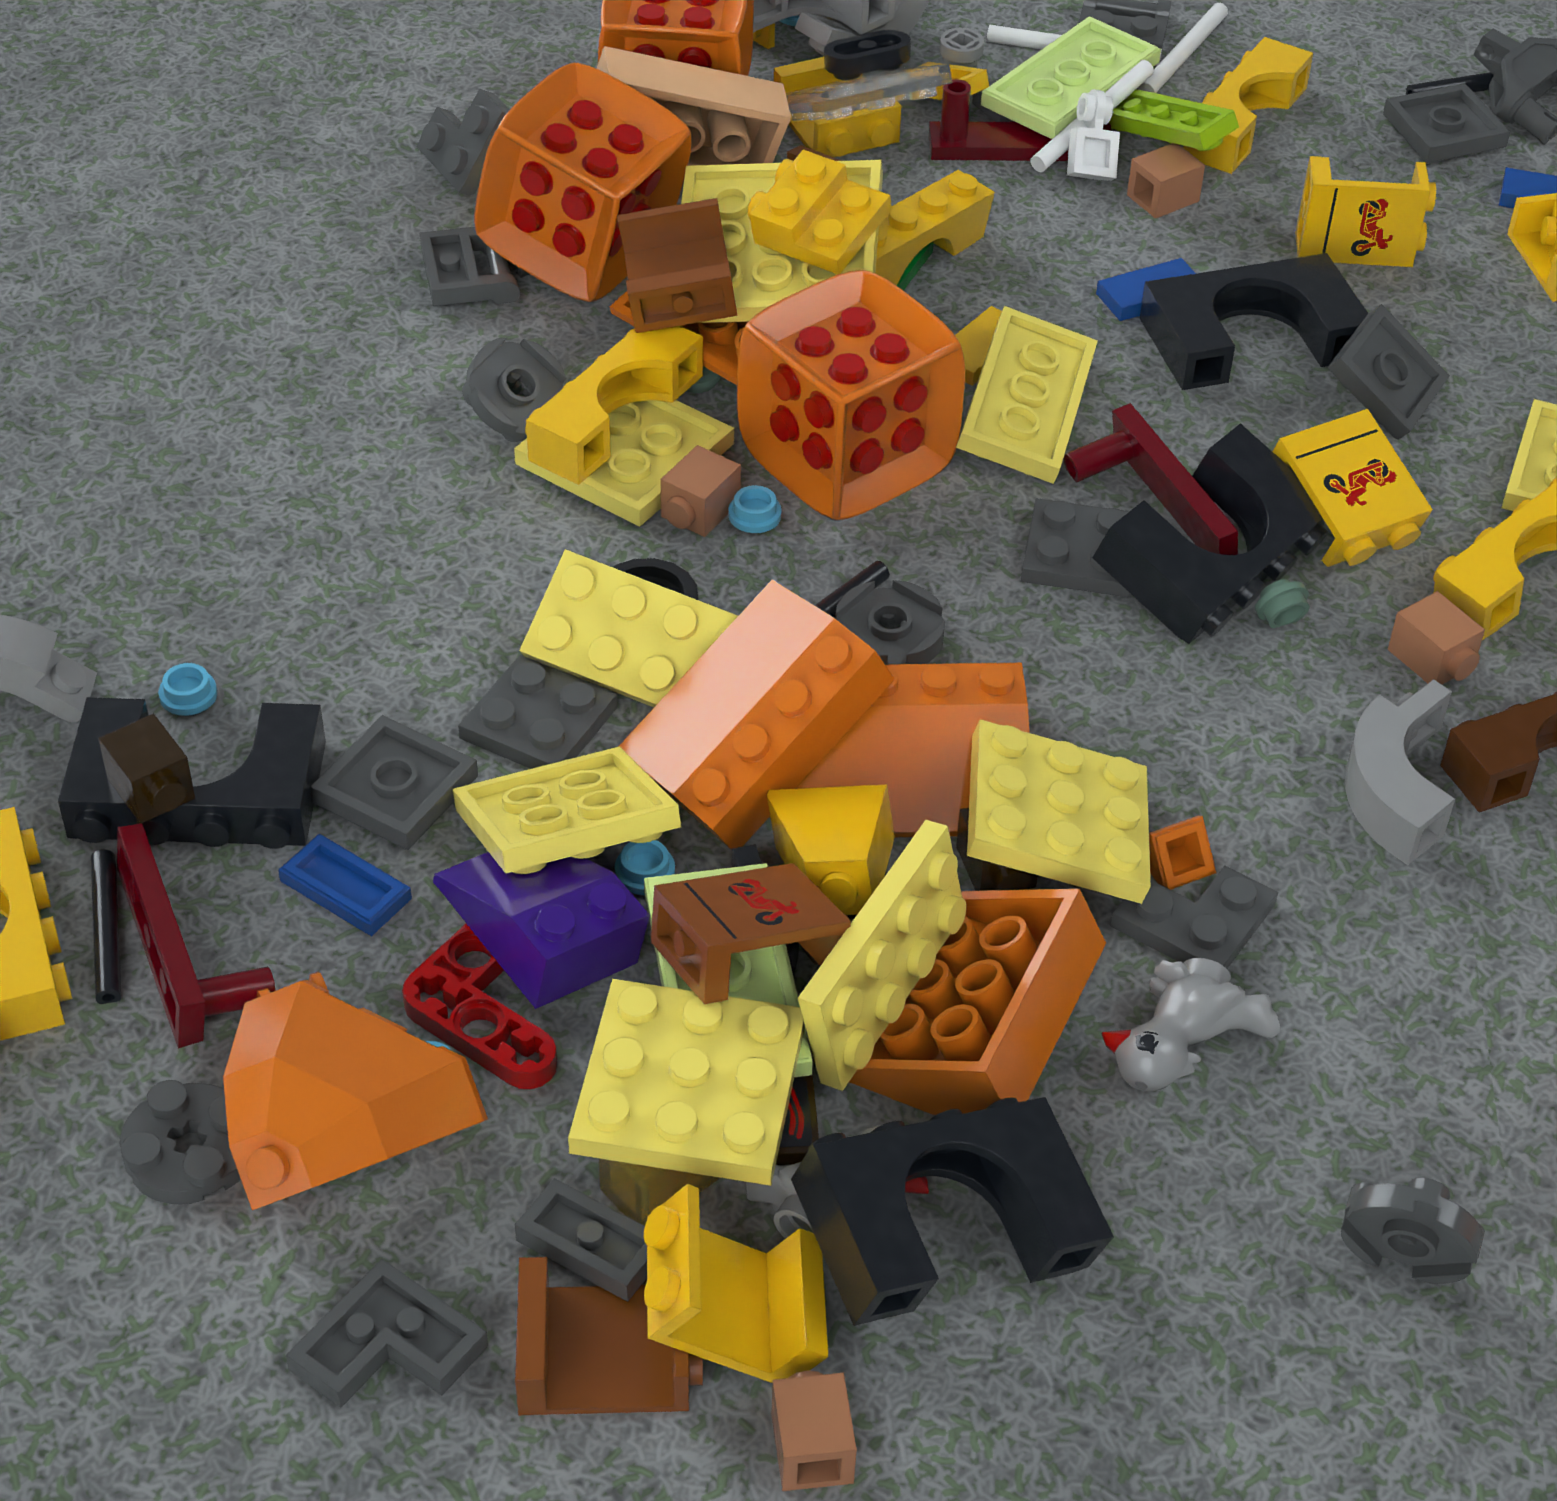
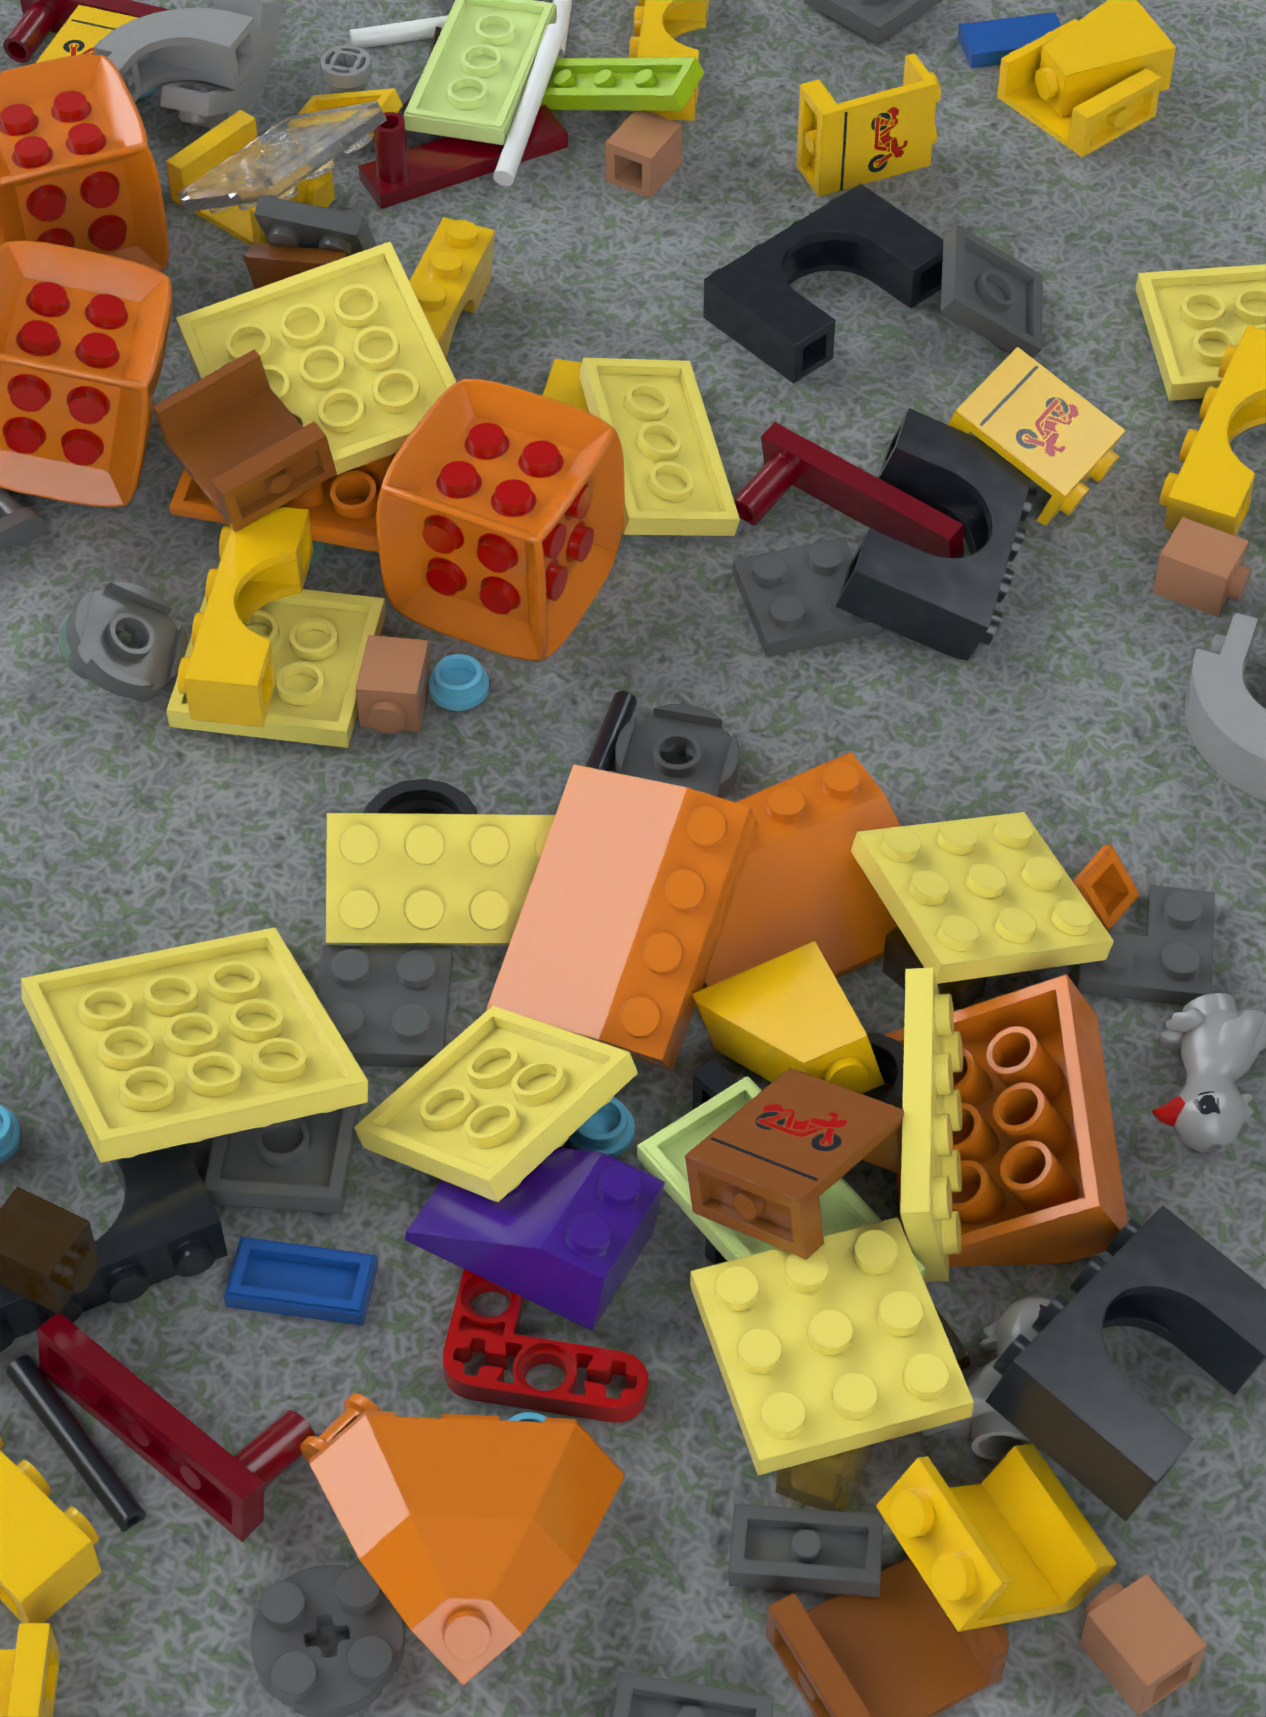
camera: 25 degrees left, 5 degrees up
(362, 677) = (191, 1043): none -> light yellow plate
(728, 113) = (175, 230): light nougat brick -> none
(816, 212) = (360, 327): yellow plate -> none
(848, 143) = (312, 226): none -> dark grey plate
(866, 53) = (261, 111): black plate -> none
(1092, 149) = (551, 142): white plate -> none
(1125, 291) = (681, 290): blue tile -> none
(1283, 603) = (1037, 583): sand green plate -> none

